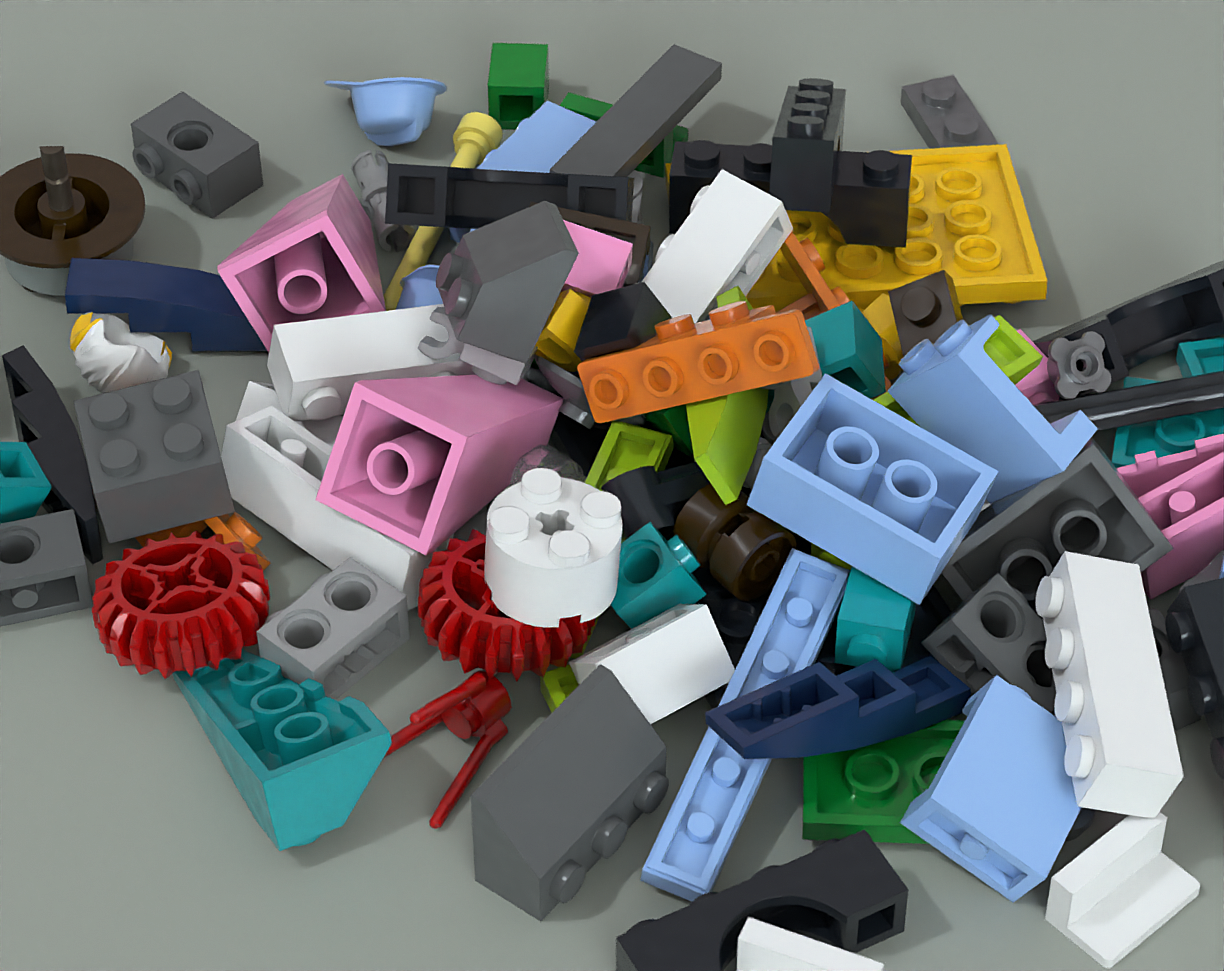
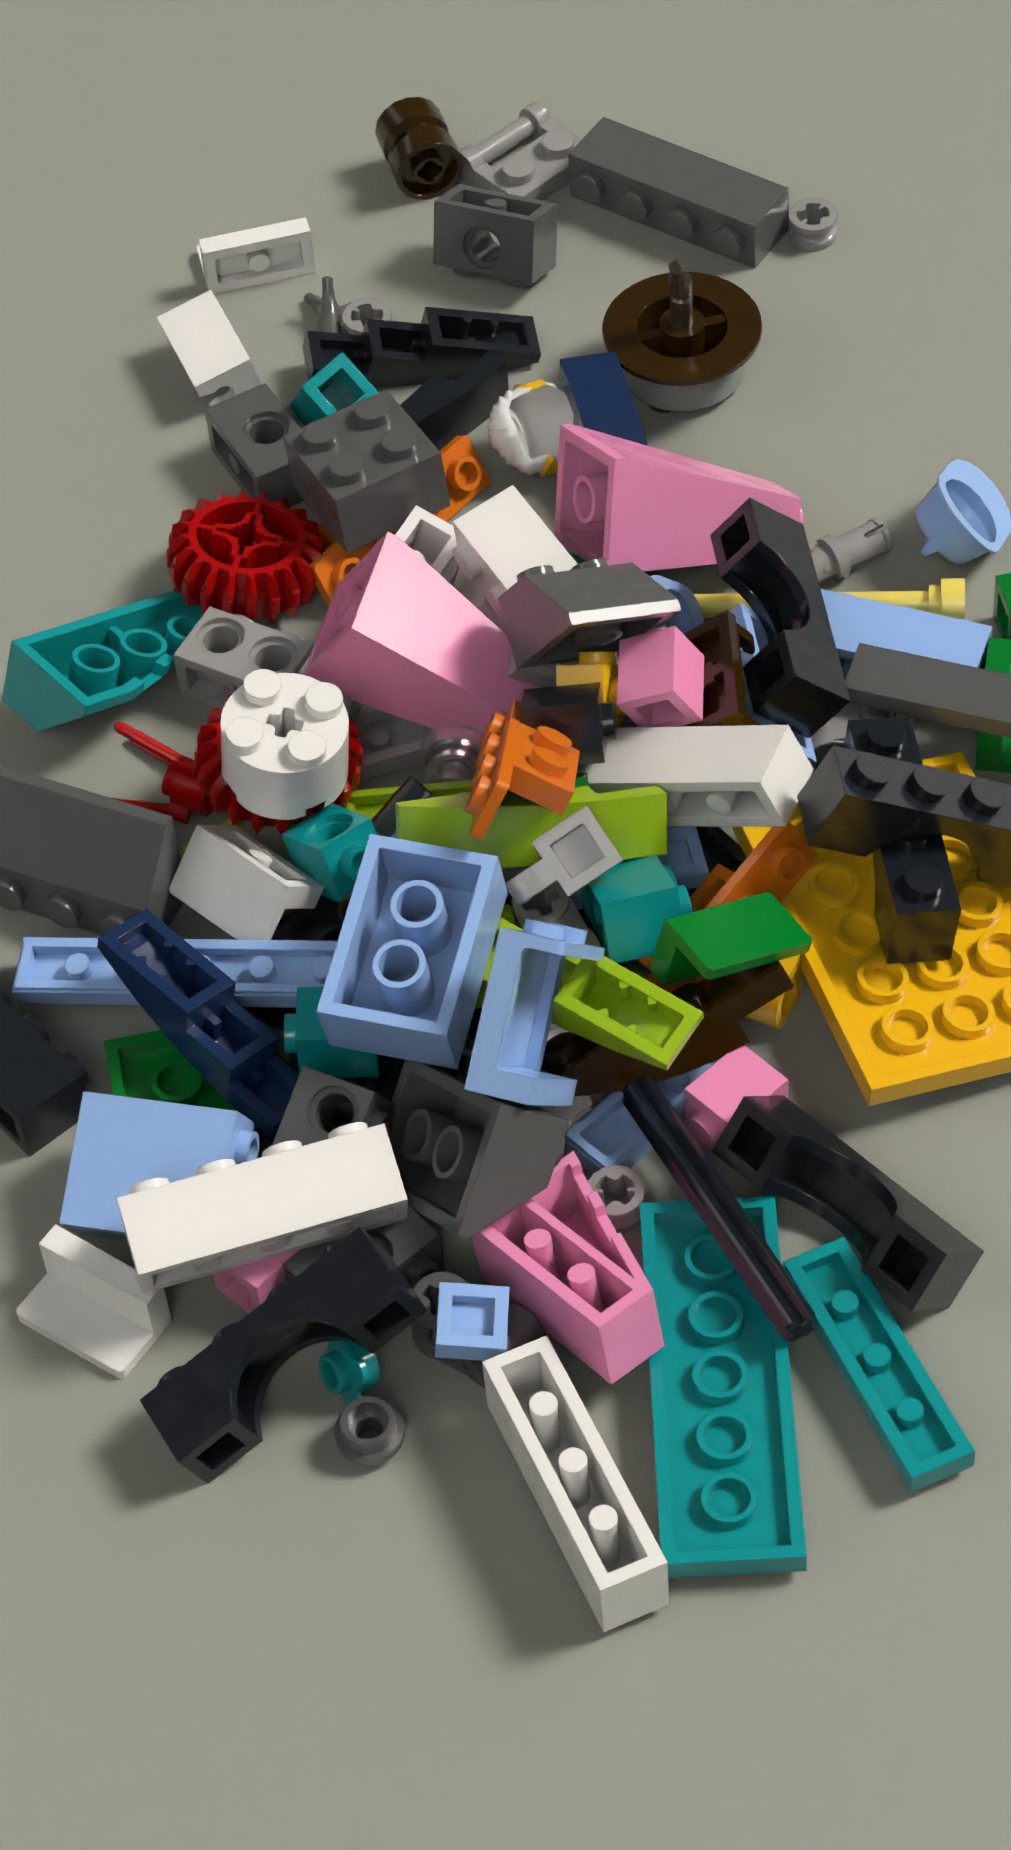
camera: 80 degrees right, 5 degrees up
(196, 154) = (832, 406): dark grey brick -> none
(896, 292) = (727, 939): none -> green panel
(1063, 369) = (735, 1120): flat silver plate -> none

